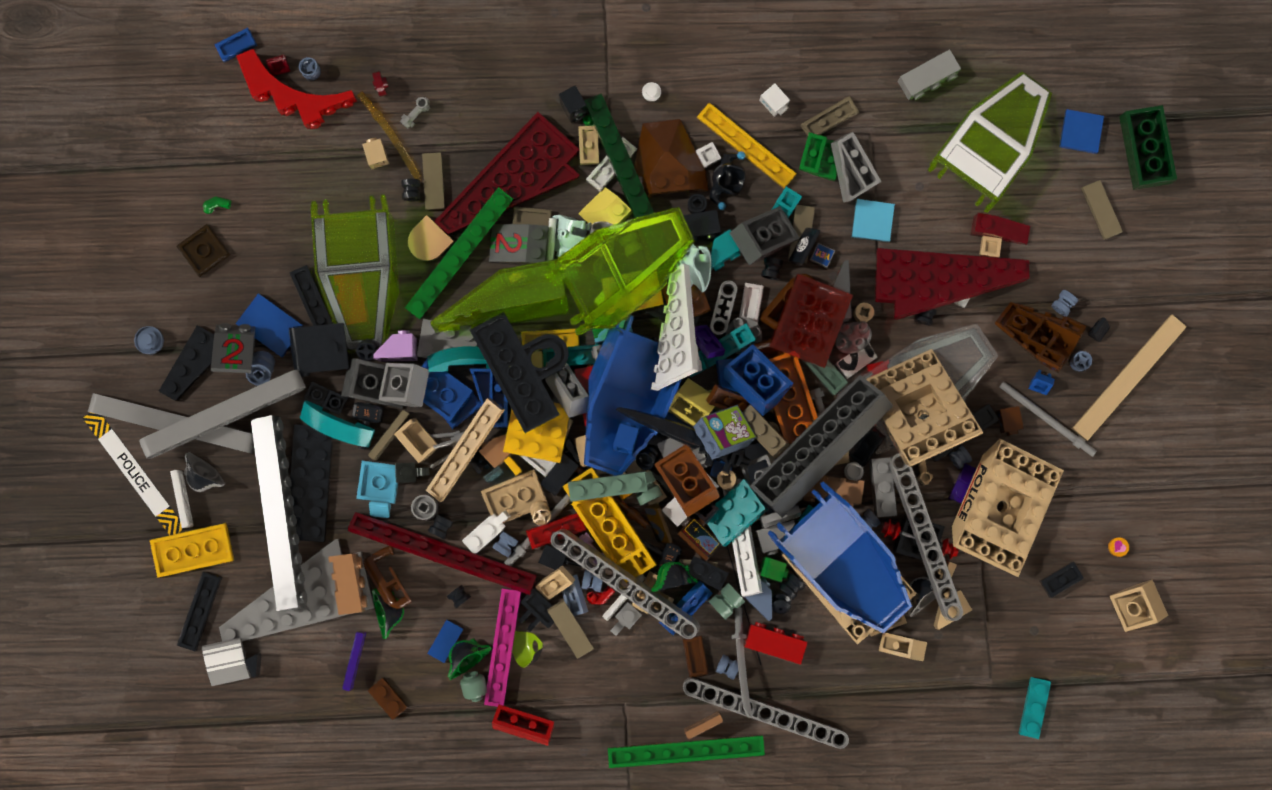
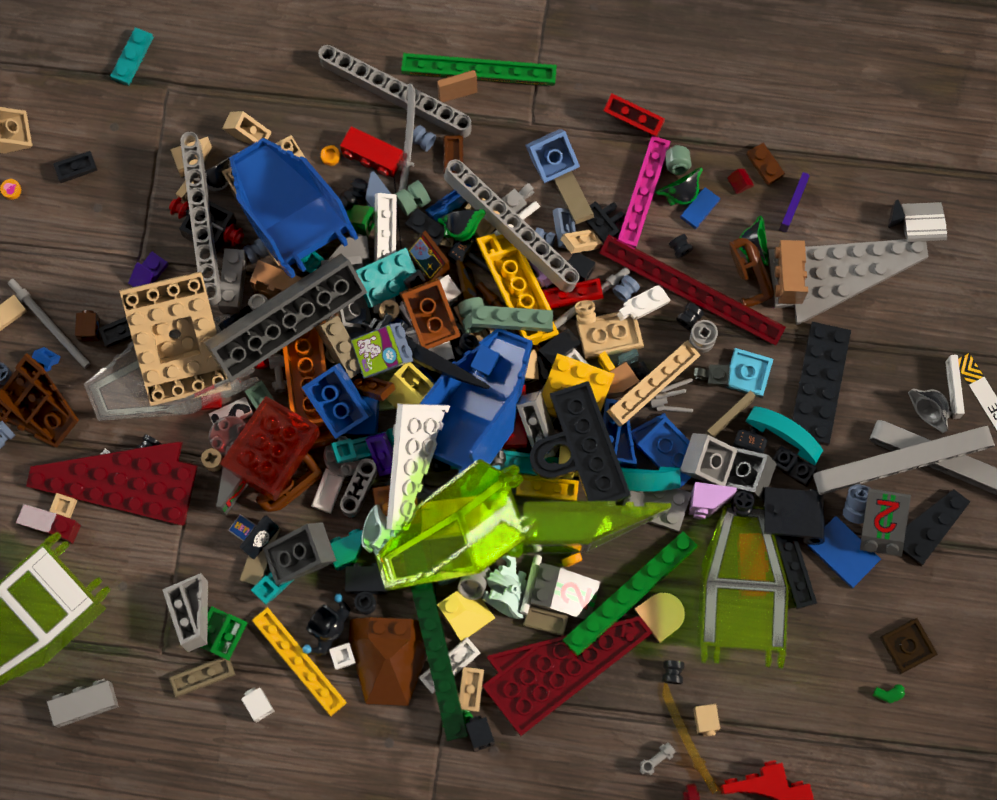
camera: 170 degrees left, 10 degrees down
(149, 340) = (976, 556): sand blue plate -> none
(192, 550) = (949, 336): yellow tile -> none
(199, 611) = (946, 276): black tile -> none
(279, 513) = (855, 354): brick -> none
(379, 509) = (750, 345): medium azure slope -> none
(410, 676) = (740, 180): none -> dark red slope
(416, 440) = (702, 405): tan panel -> none
(433, 181) = (647, 679): dark tan tile -> none
(523, 648) = (622, 184): lime piece -> none
(597, 669) = (552, 155): none -> medium blue slope
(599, 598) = (540, 222): red arm -> none
(651, 91) = (391, 738): white plate -> none
(771, 268) = (298, 519): black wheel -> none
(815, 635) = (330, 155): none -> light orange tile
(873, 220) = (180, 556): medium azure tile -> none
(1026, 490) = (122, 213): tan slope -> none

